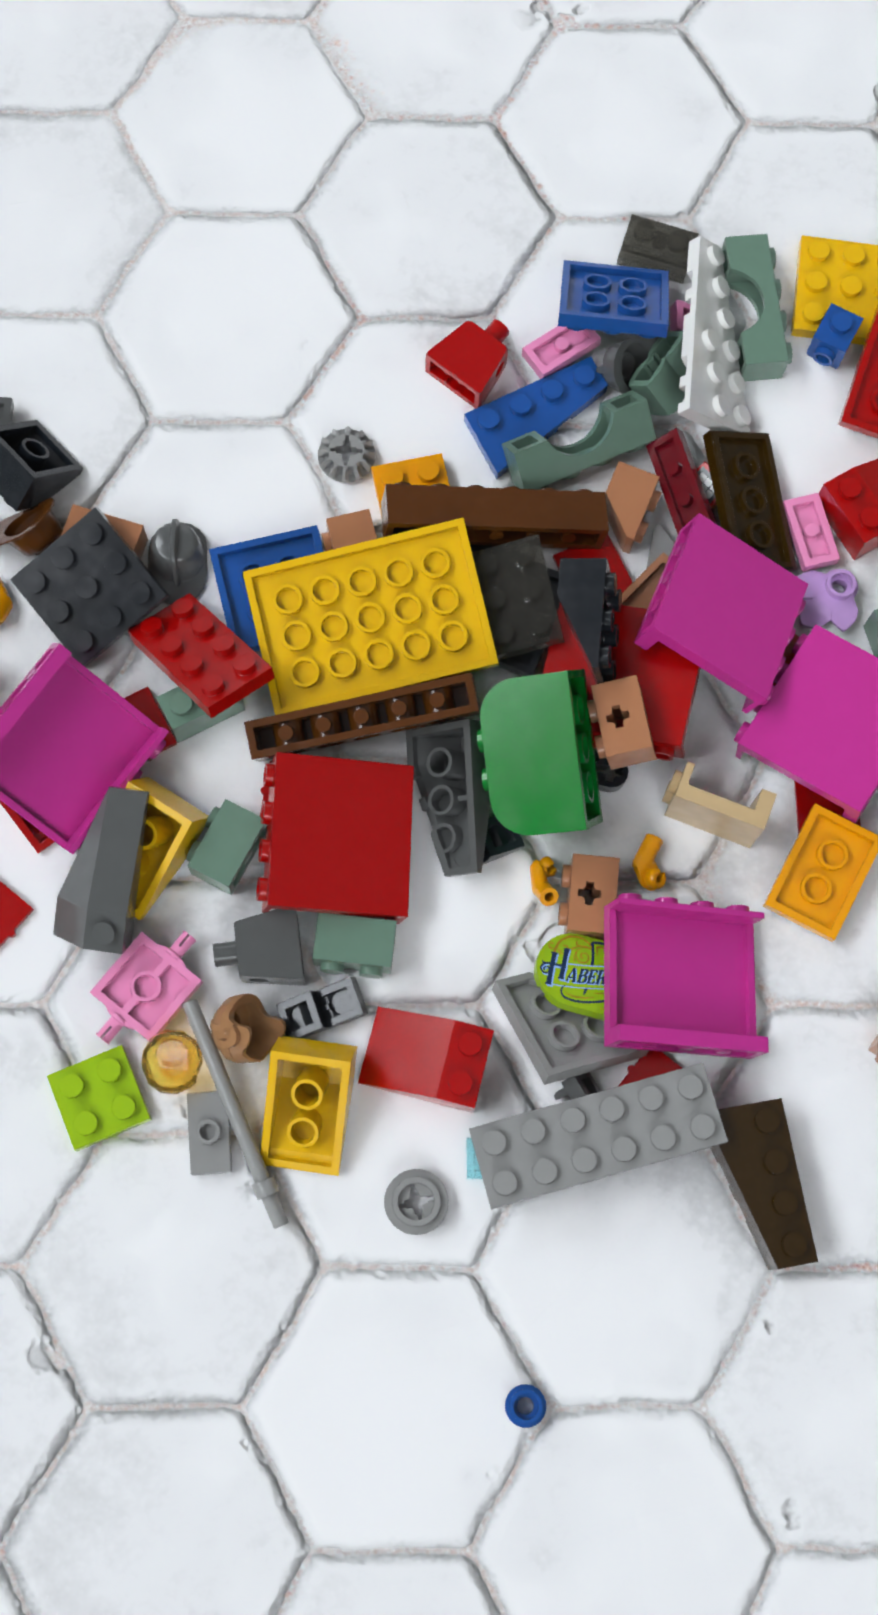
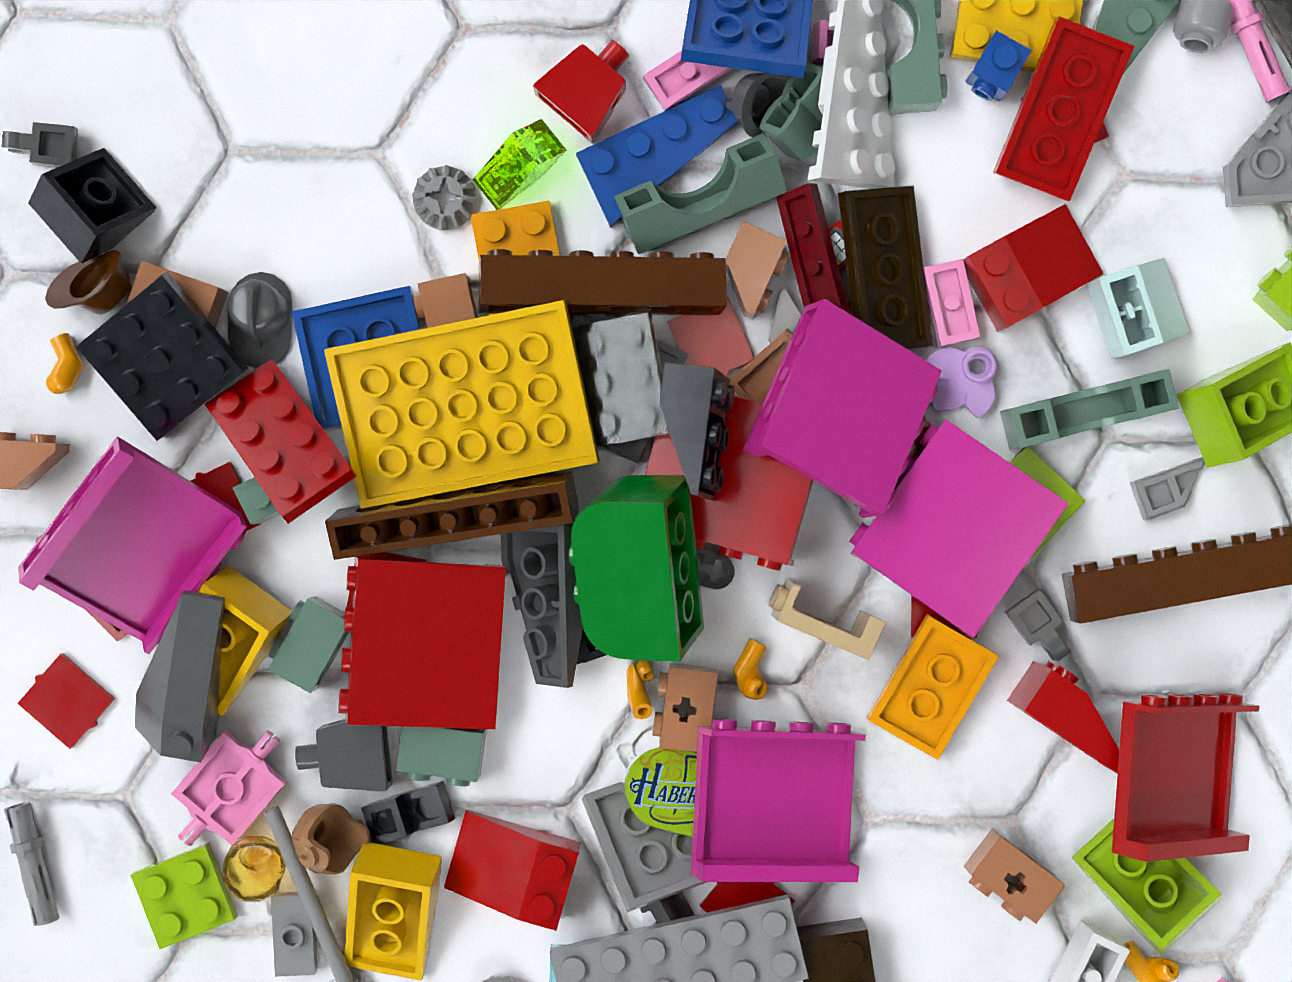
camera: 10 degrees right, 15 degrees up
(414, 422) = (519, 163): none -> clear neon green slope
(619, 701) = (740, 556): nougat brick -> none

